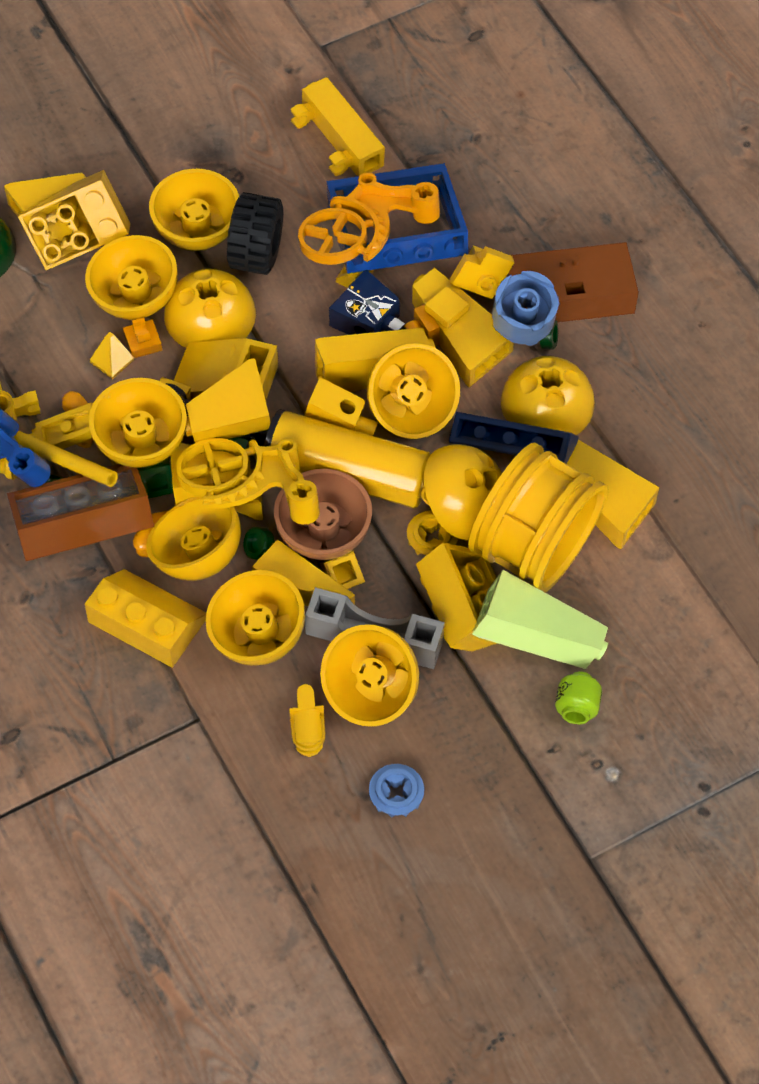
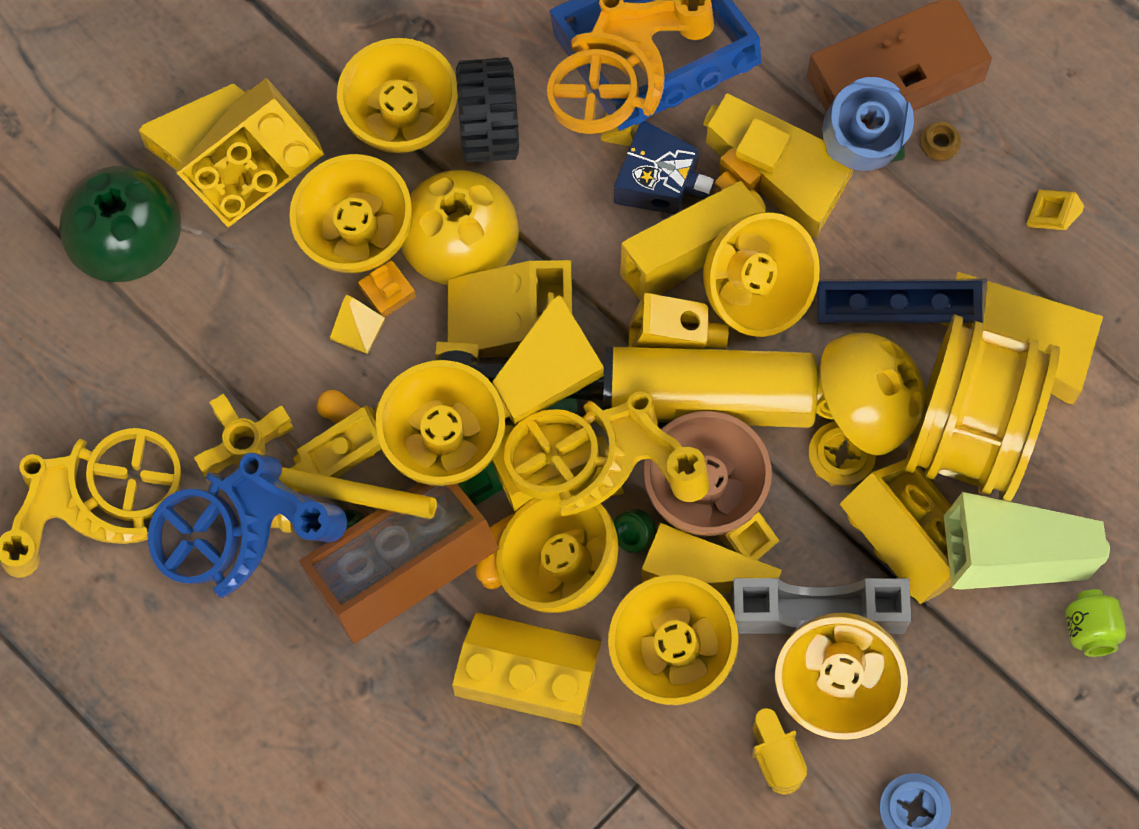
camera: 15 degrees left, 10 degrees up
(482, 271) = (788, 81): yellow brick -> none
(548, 395) = (914, 245): yellow piece -> none
(588, 337) = (942, 131): none -> pearl gold plate
(655, 411) = (1055, 209): none -> yellow slope

